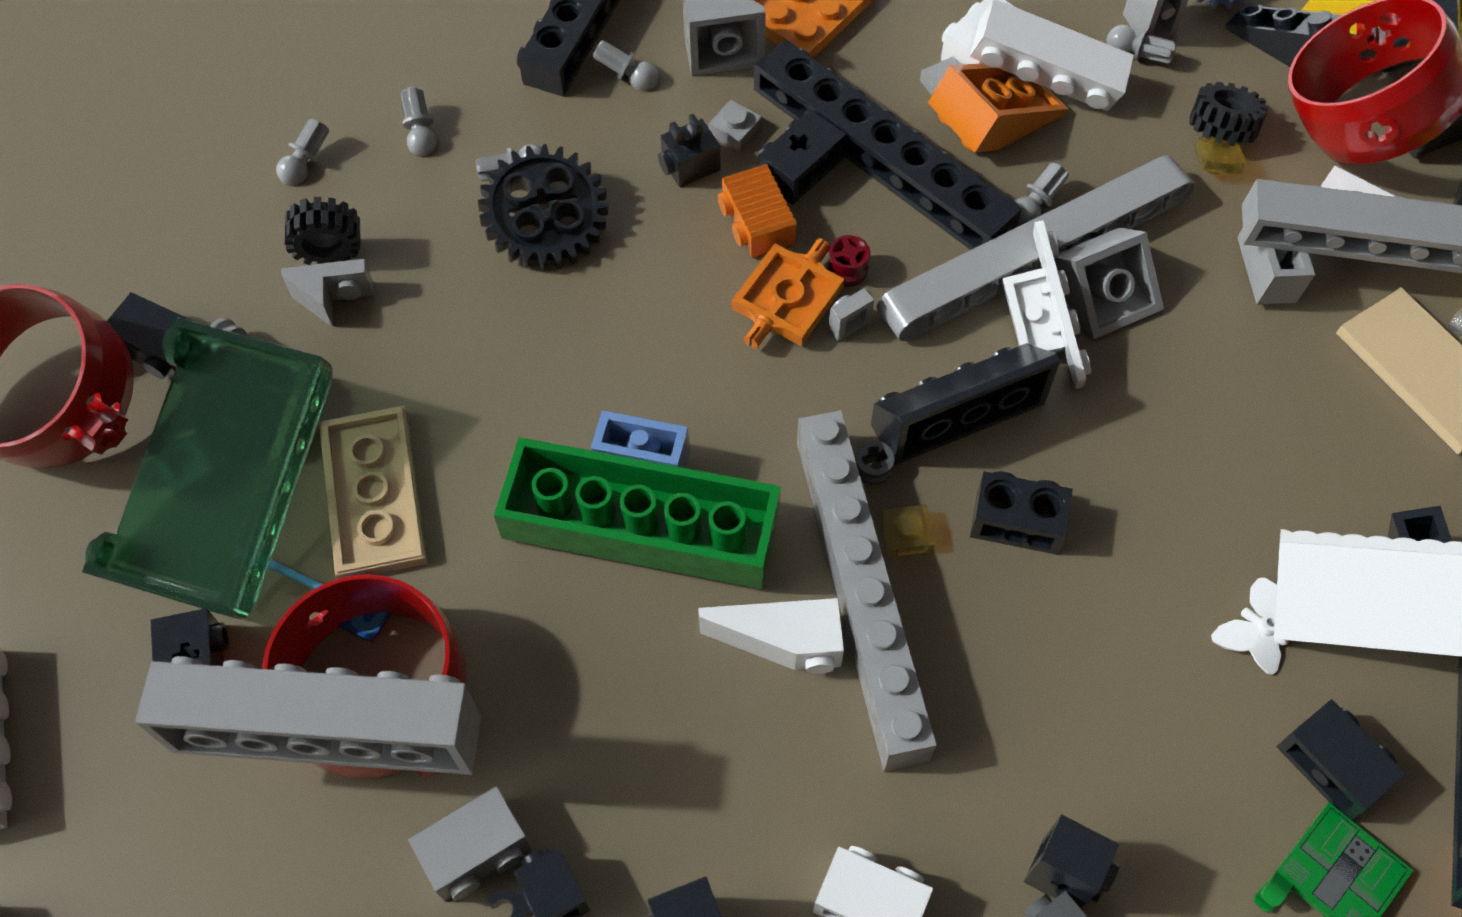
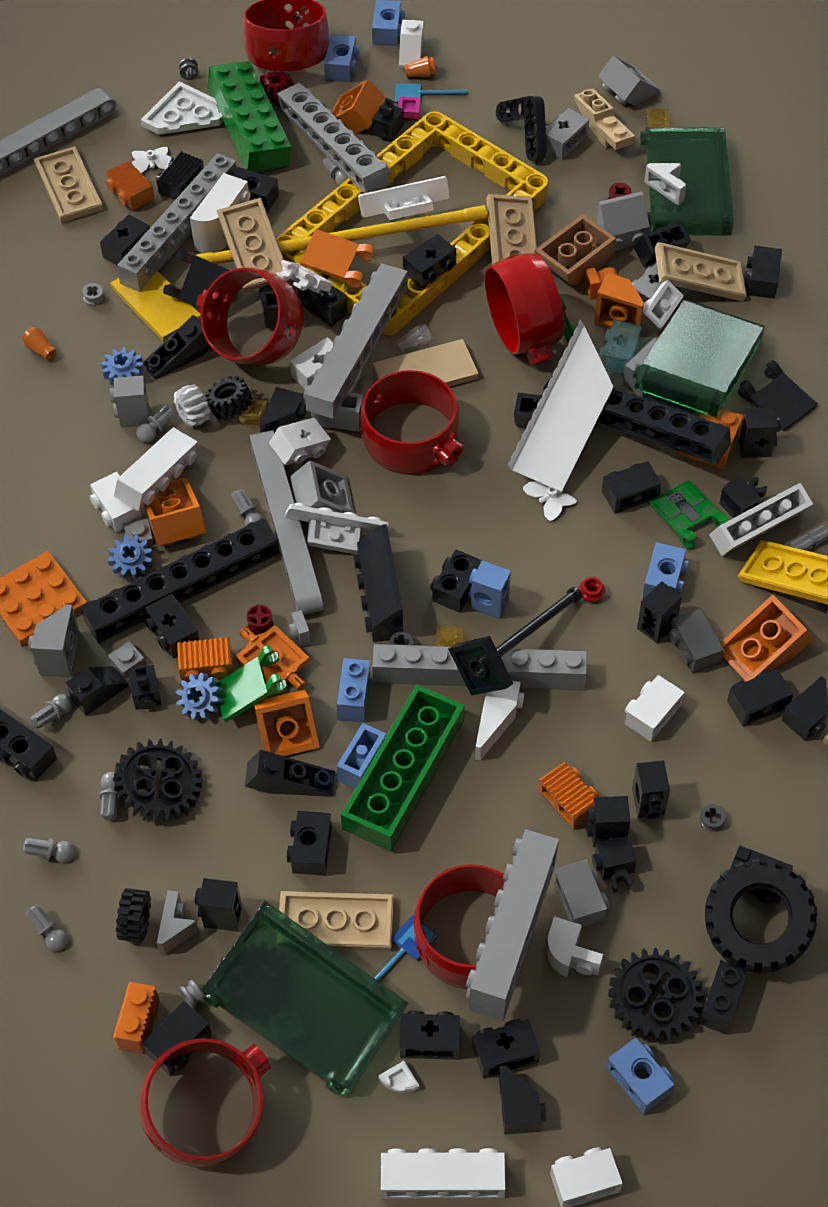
camera: 75 degrees left, 5 degrees down
(86, 824) = (519, 1104): none -> black slope
(126, 642) = (399, 1079): none -> white tile
(179, 809) = (517, 1036): none -> black brick
(180, 280) = (136, 1017): none -> orange brick
(350, 326) = (219, 904): none -> black brick
(360, 837) = (564, 952): none -> white brick
(467, 438) = (312, 858): none -> black brick
(590, 363) = (287, 776): none -> black slope
(604, 859) = (608, 819): none -> black brick
(657, 786) = (568, 793): none -> orange brick
(670, 93) = (95, 687): none -> black slope
(679, 337) = (287, 723): none -> orange slope
(691, 218) = (192, 692): none -> medium blue gear
(719, 264) = (248, 685): none -> green flag
(760, 411) = (353, 690): none -> medium blue brick
(834, 568) = (482, 662): none -> black tile
(897, 77) = (132, 548): none -> medium blue gear
(1012, 560) = (490, 589): none -> medium blue brick
(1096, 727) = (595, 584): none -> red plate
(1186, 218) = (299, 441): none -> white brick
(1188, 70) = (191, 405): none -> white gear
(1198, 849) = (666, 560): none -> medium blue brick
(1226, 183) = (283, 409): none -> black slope
(1350, 319) = (419, 456): none -> red cylinder

